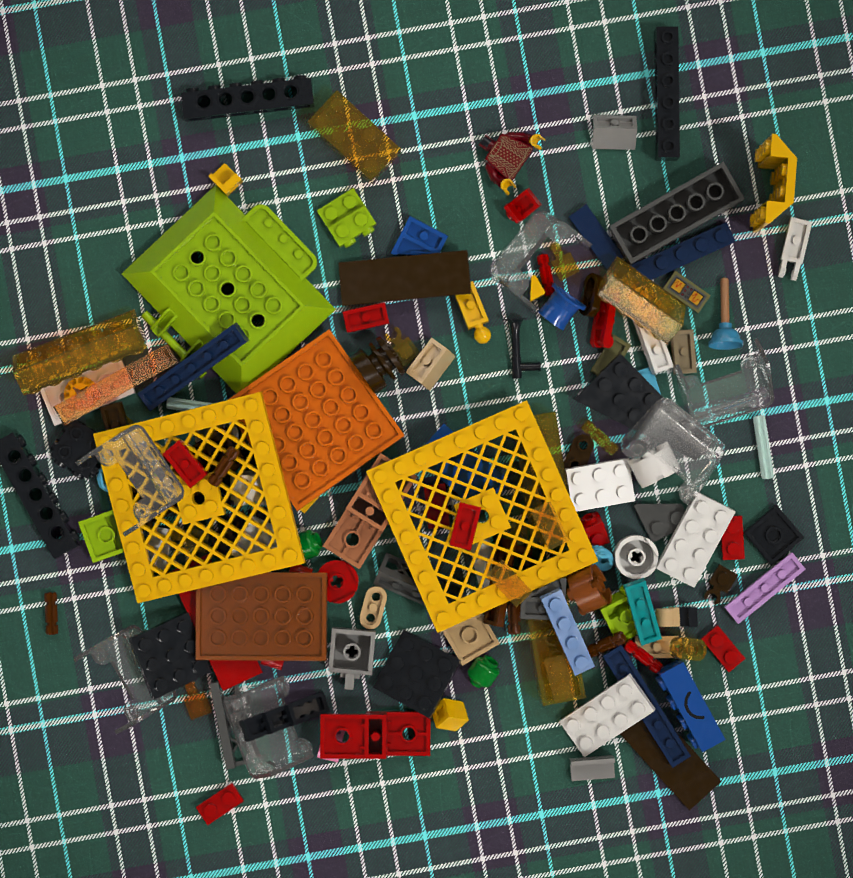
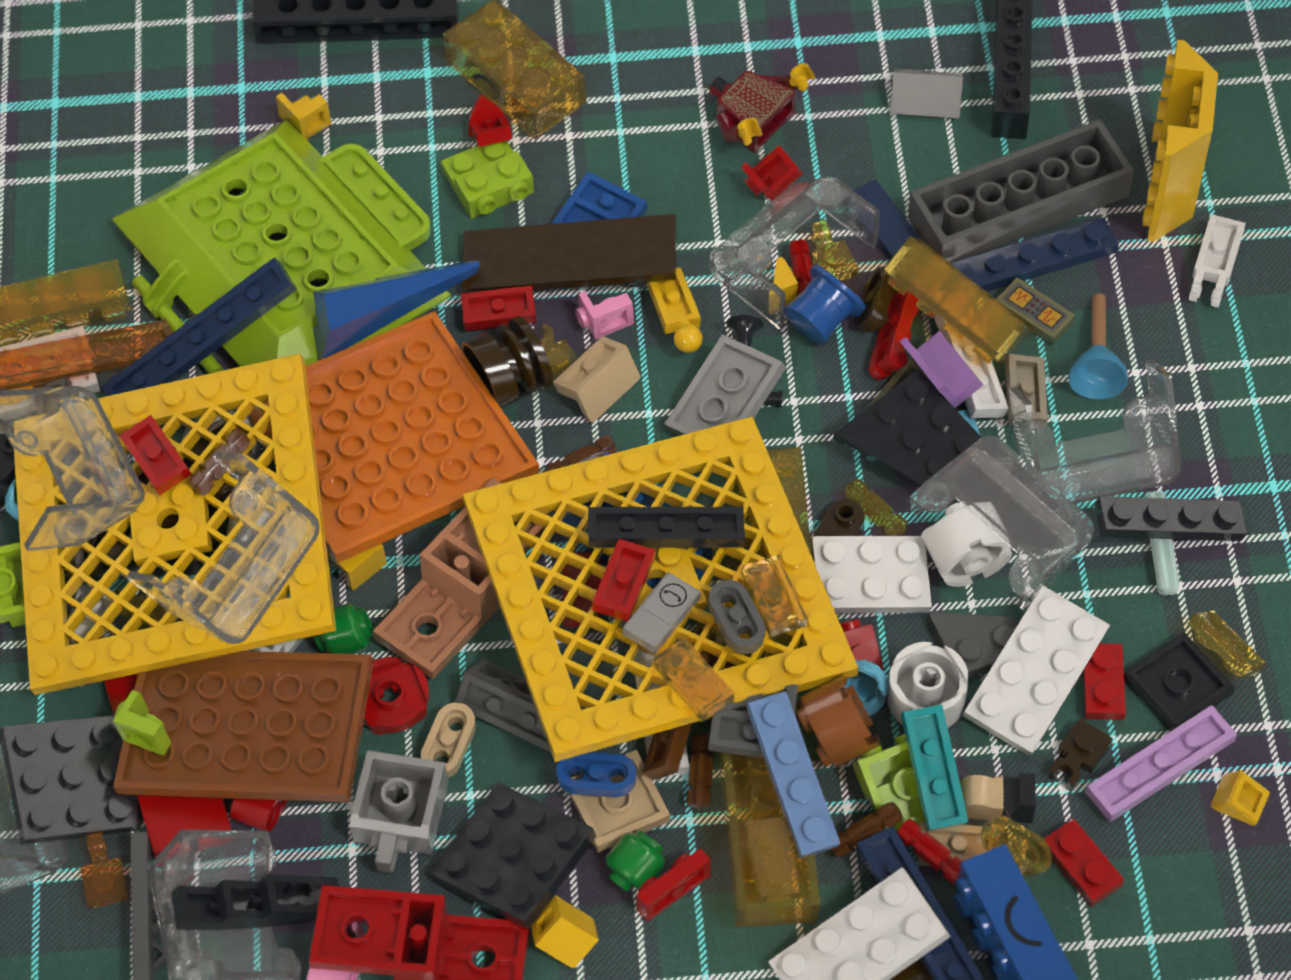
camera: 10 degrees right, 30 degrees down
(208, 630) = (140, 727): none -> lime bracket
(251, 538) = (252, 568): none -> clear windscreen
(283, 341) = (361, 309): none -> blue wedge
(344, 183) = (488, 123): none -> red tile
(427, 418) = (588, 452): none -> reddish brown axle
(434, 317) = (605, 317): none -> bright pink bracket
(459, 632) = (597, 772): none -> blue plate
(485, 487) = (666, 526): none -> black plate
(487, 543) = (661, 613): none -> light grey tile
(498, 688) = (662, 892): none -> red plate
(507, 373) = (726, 387): none -> light grey plate
(529, 543) = (739, 619): none -> dark grey plate
(634, 348) = (945, 368): none -> medium lavender panel
(768, 436) = (1170, 518): none -> black plate
(800, 512) = (1219, 636): none -> clear yellow plate
(806, 602) = (1240, 797): none -> yellow slope

